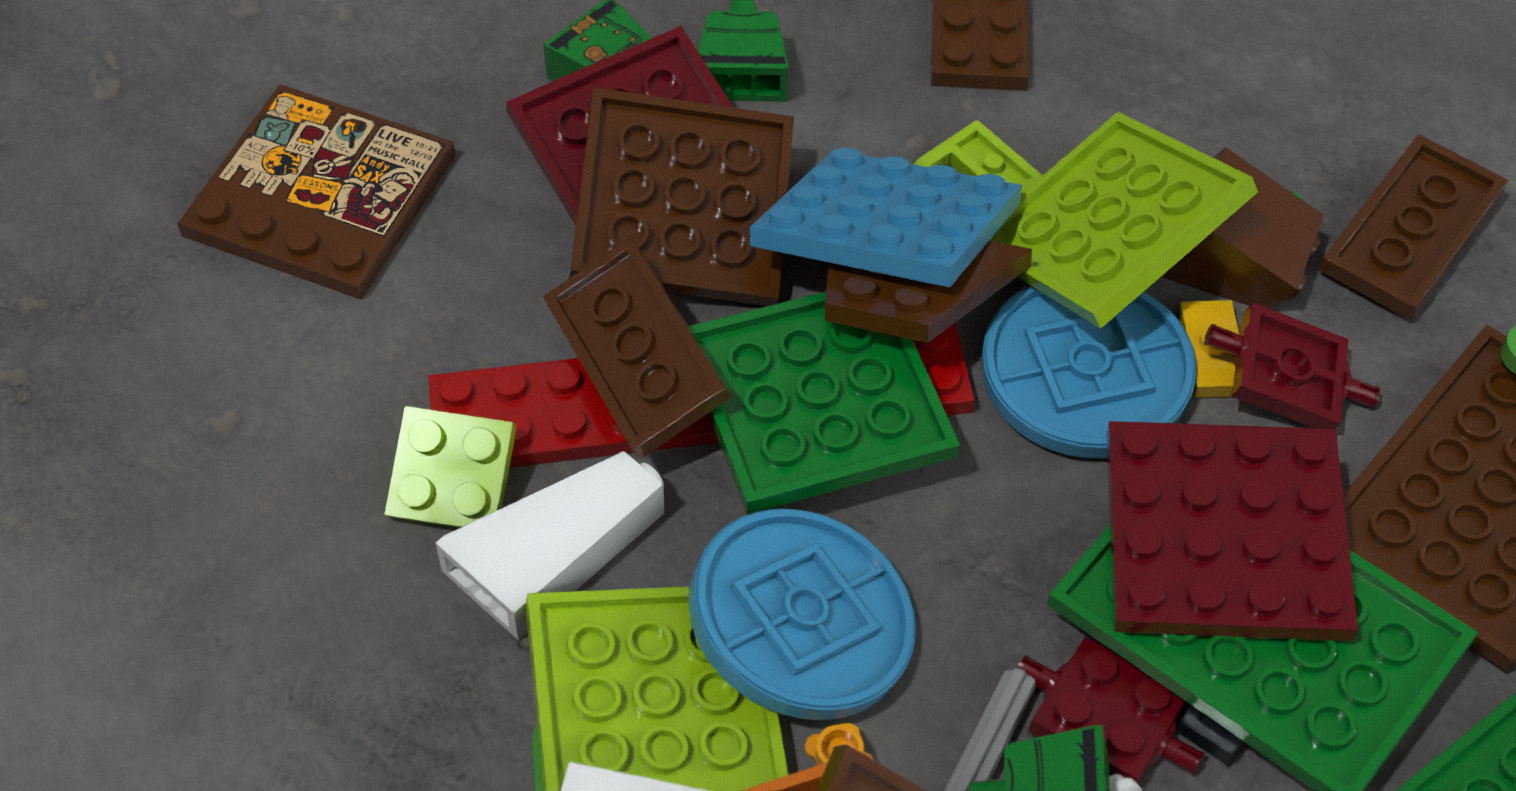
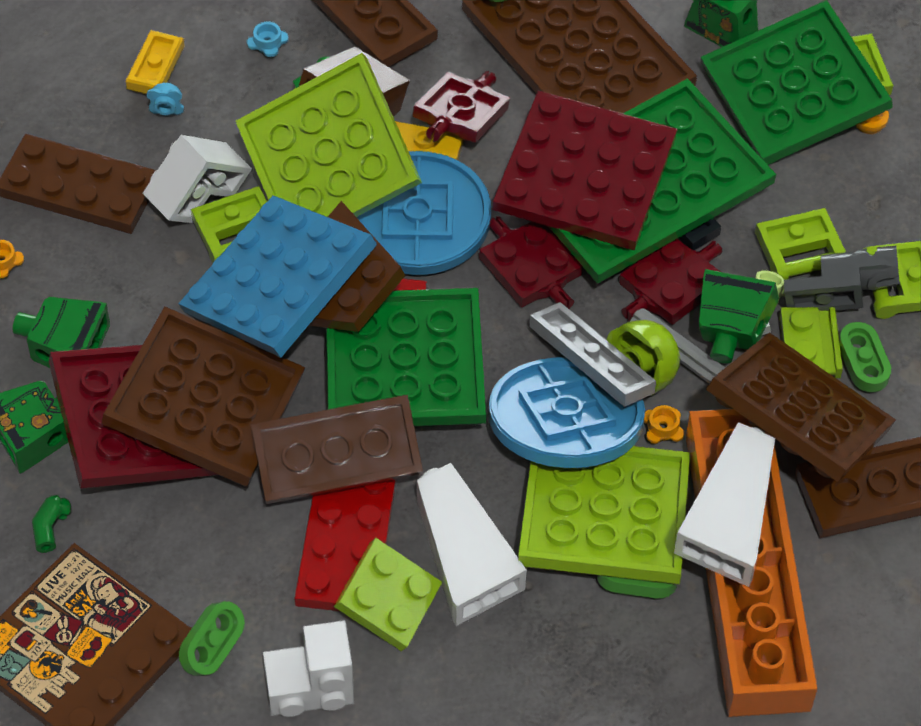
camera: 75 degrees left, 0 degrees up
(309, 416) = (313, 674): none -> white brick
(350, 304) = (210, 641): none -> bright green plate
(475, 111) = (43, 521): none -> green arm
(909, 622) = (592, 354): none -> light grey plate
(938, 695) = (649, 348): none -> lime cylinder
(1029, 101) = (192, 174): none -> white brick
(1050, 518) = (530, 262): none -> dark red plate
(1142, 53) = (165, 99): none -> medium azure plate
(1198, 31) = (155, 61): none -> yellow plate
(1302, 132) = (267, 38): none -> medium azure plate

